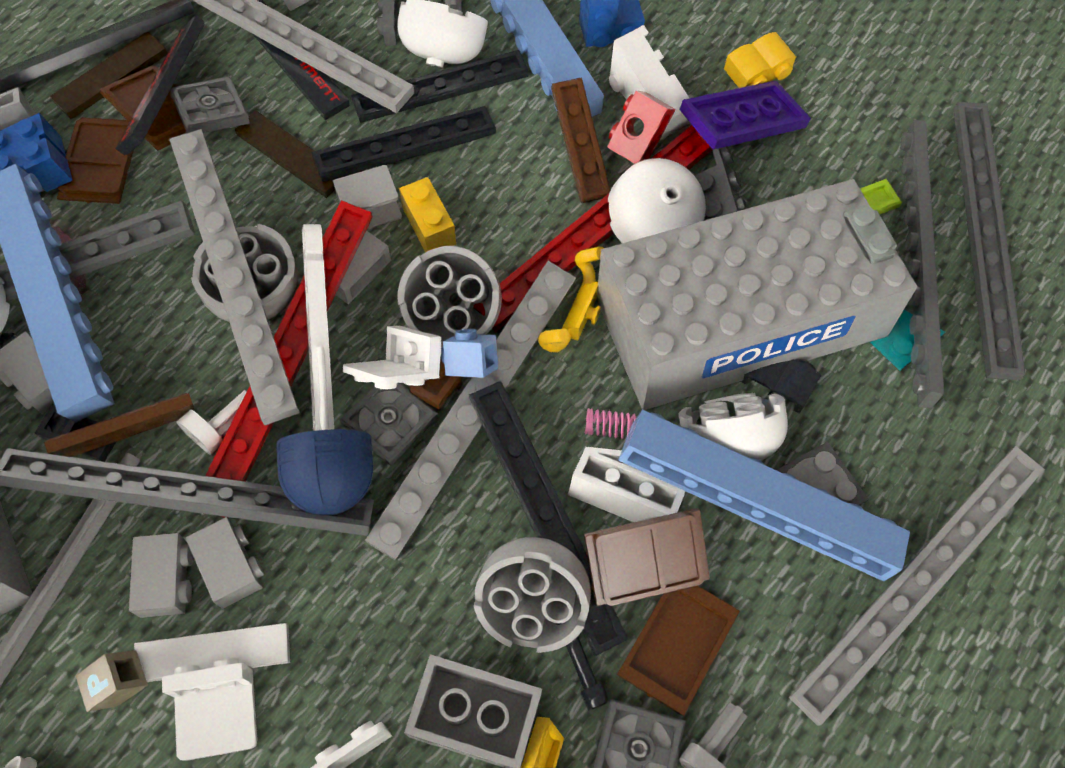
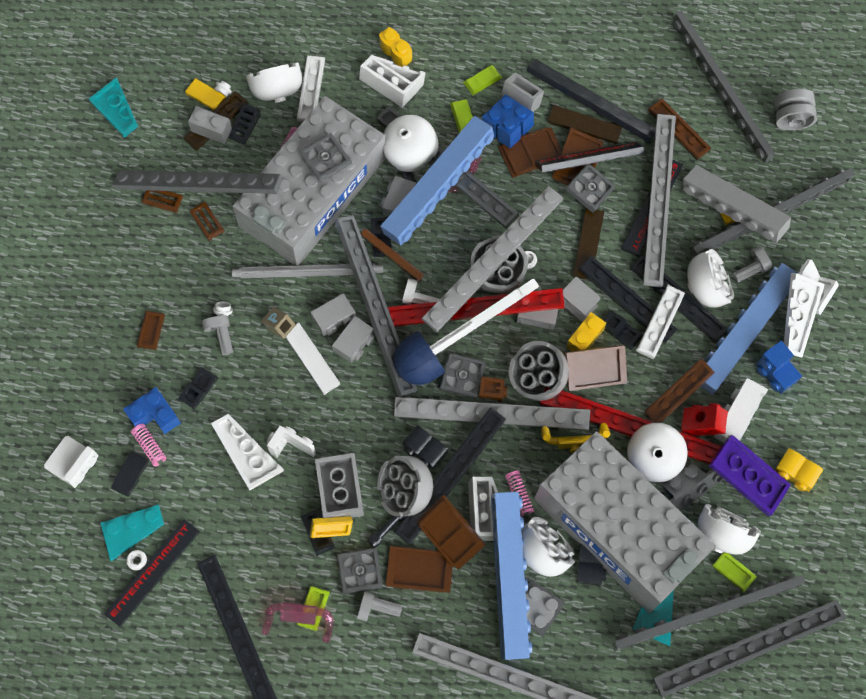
camera: 65 degrees right, 5 degrees up
(213, 709) = (287, 373): white bracket -> none
(410, 359) = (490, 369): white bracket -> none
(448, 173) = (620, 330): none -> black slope
(464, 117) = (660, 322): none -> white tile
(470, 354) = (510, 396): brick -> none
(475, 533) = (424, 447): none -> black brick
(487, 221) = (596, 367): none -> piece
(827, 165) = (727, 536): none -> white cylinder

